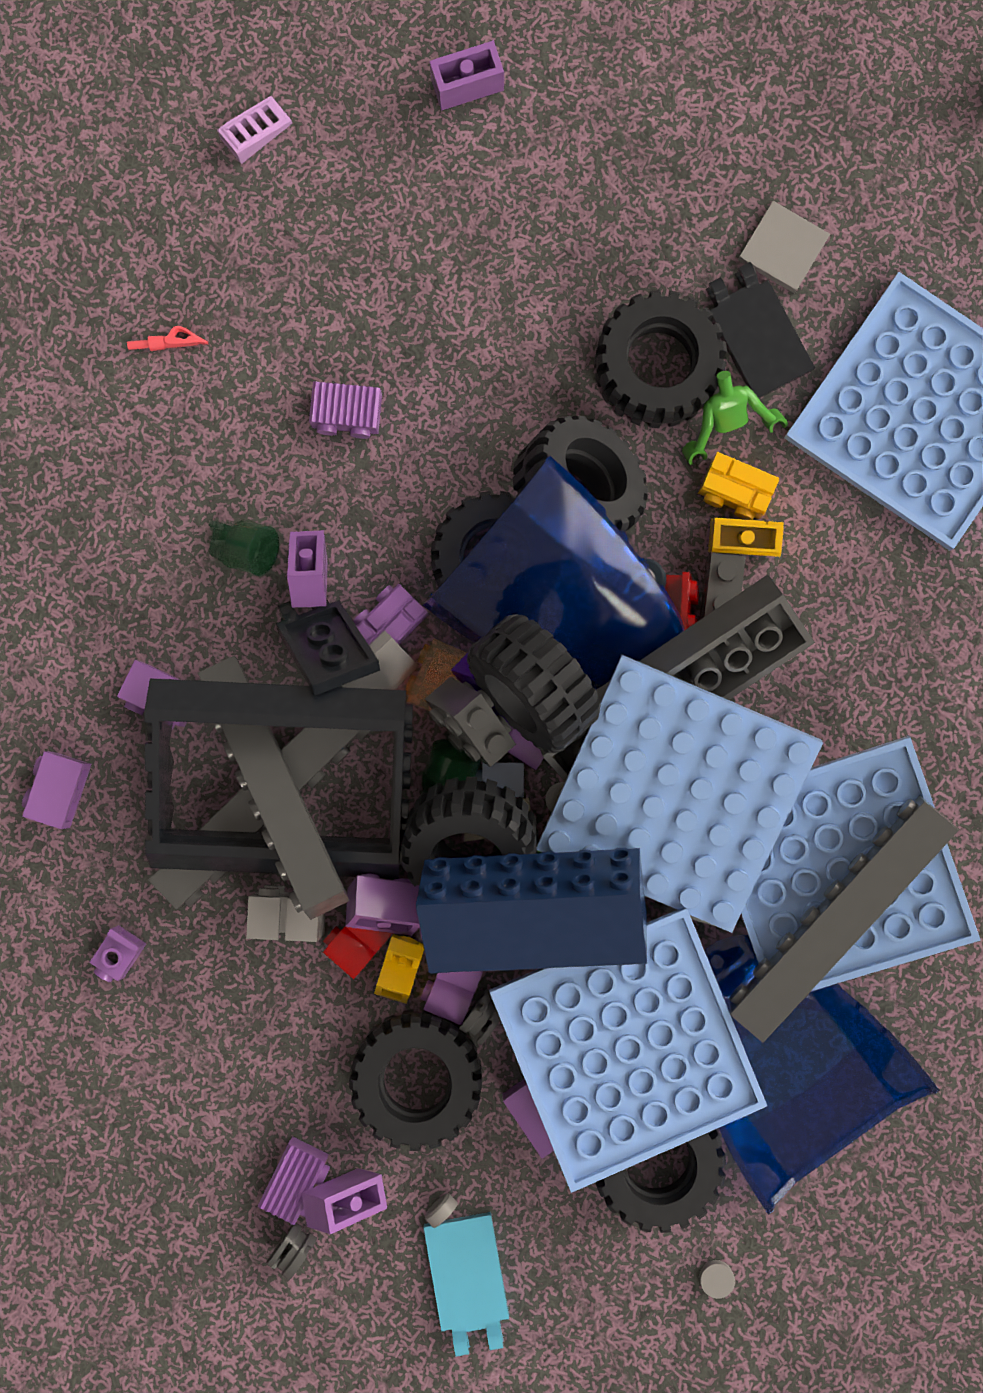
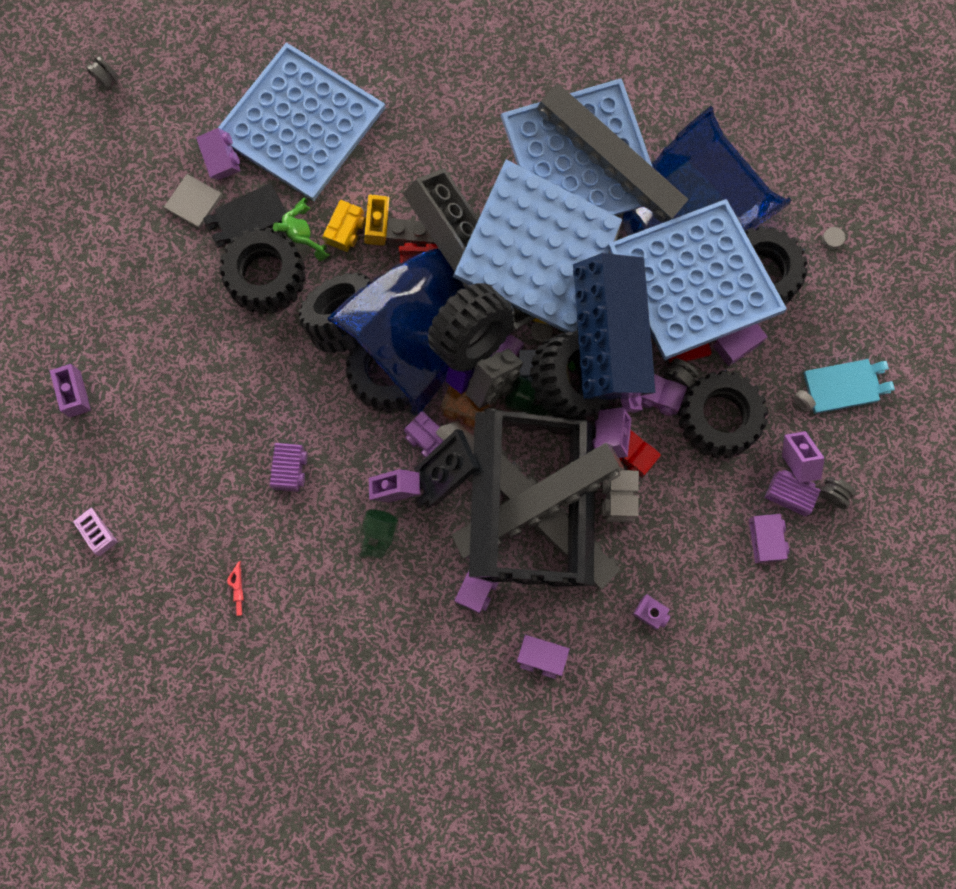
camera: 90 degrees left, 10 degrees down
(223, 1138) = (768, 538): none -> medium lavender brick
(399, 968) = (652, 427): yellow brick -> none
(861, 281) = (218, 153): none -> medium lavender brick

